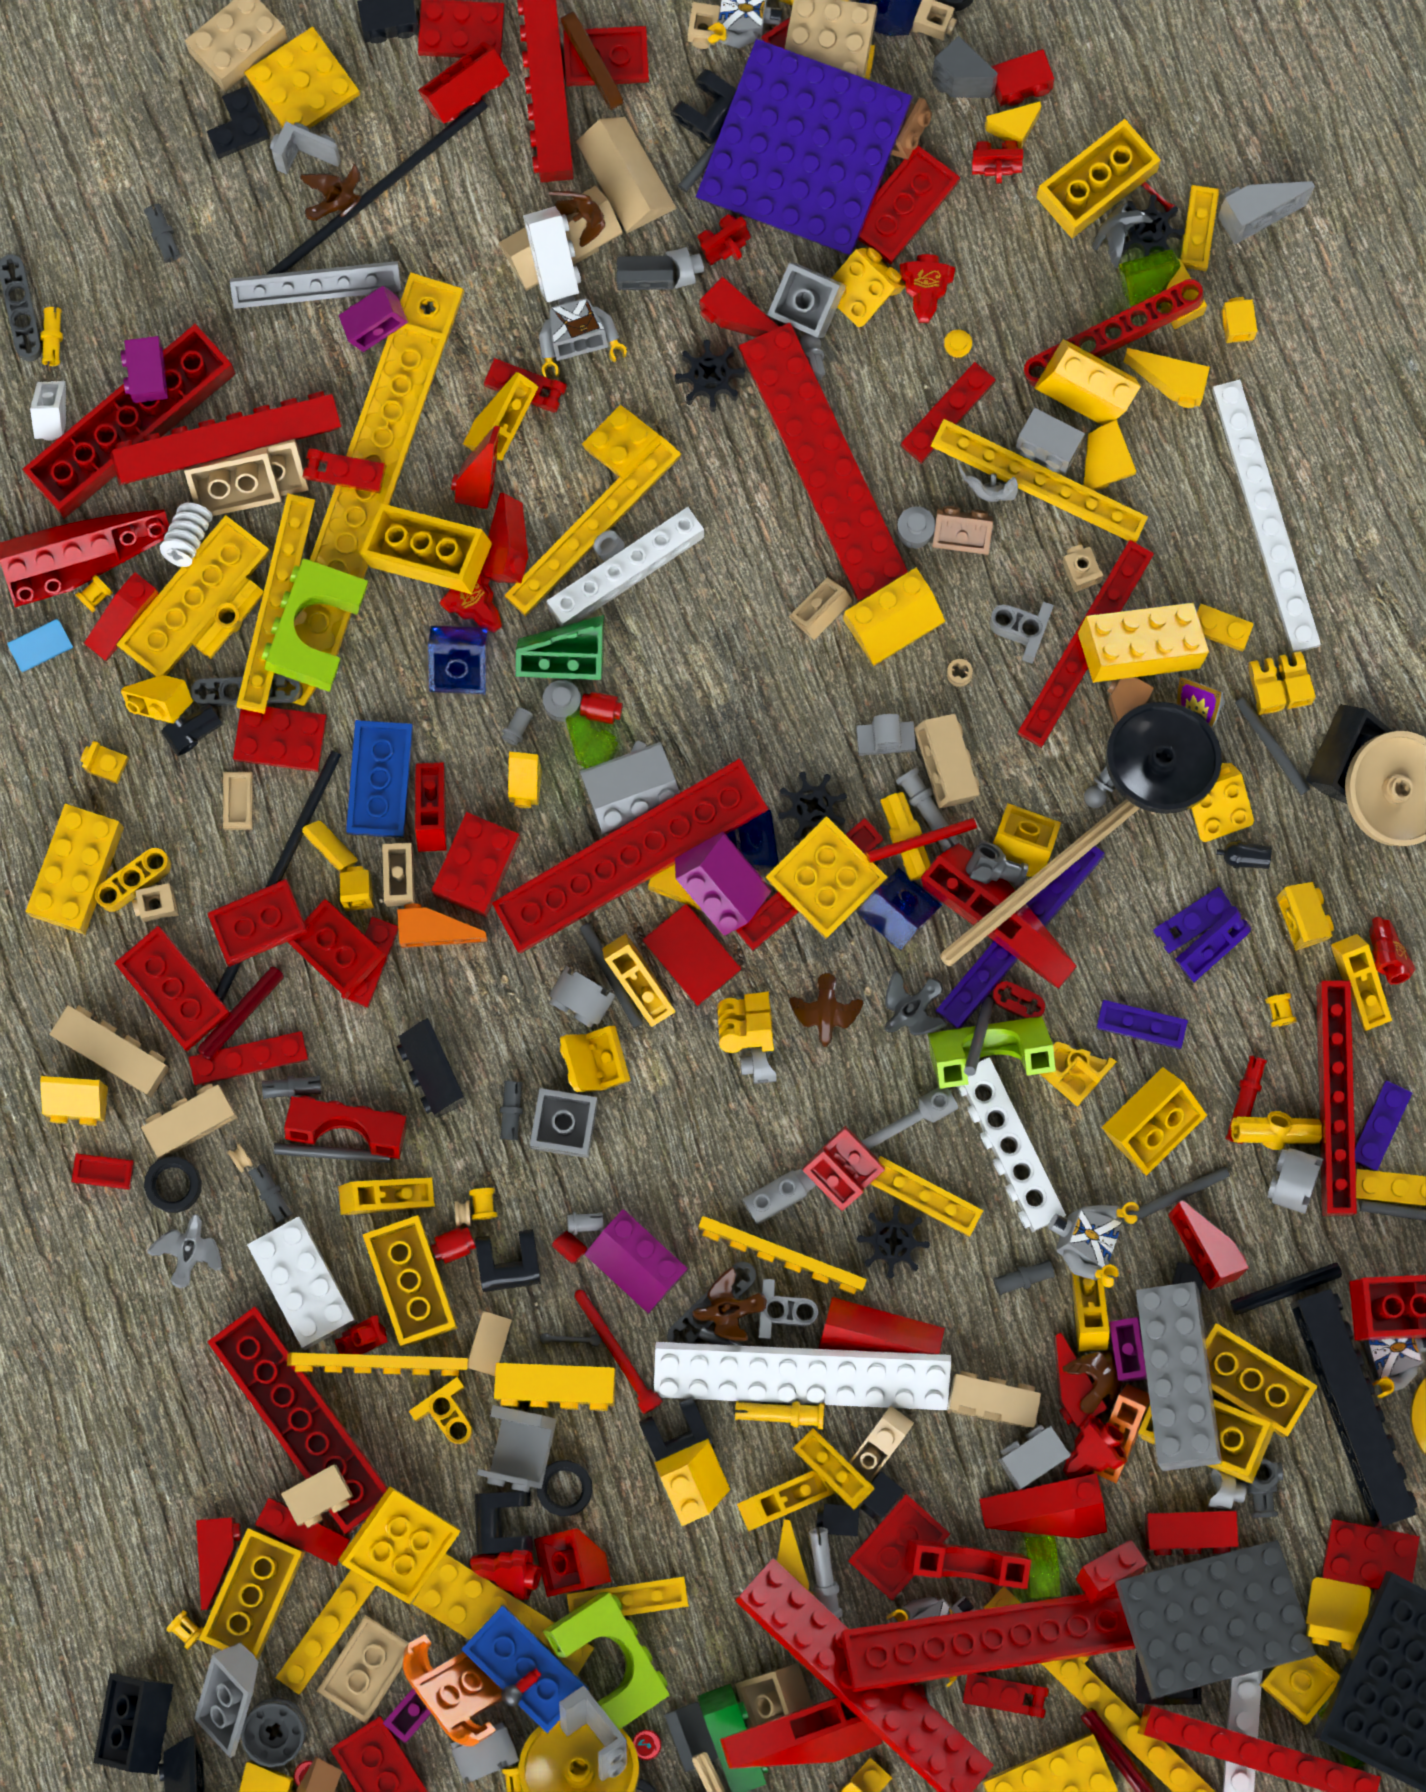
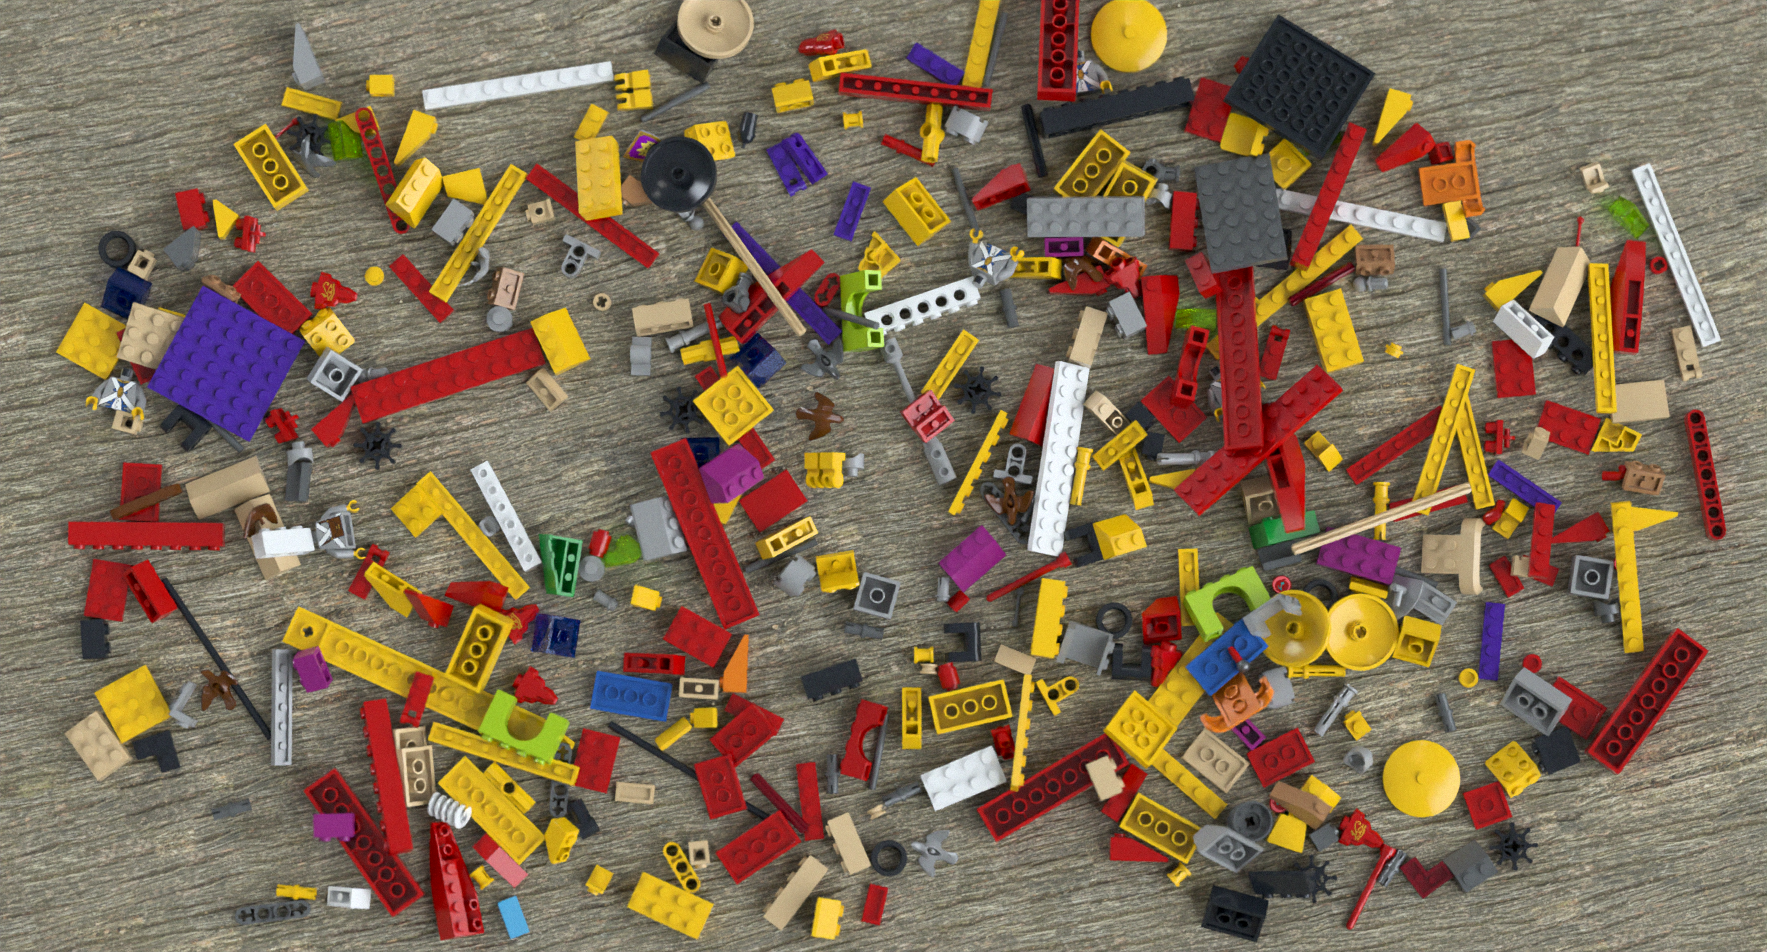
camera: 90 degrees left, 5 degrees up
(377, 635) = (532, 688): none -> red rock

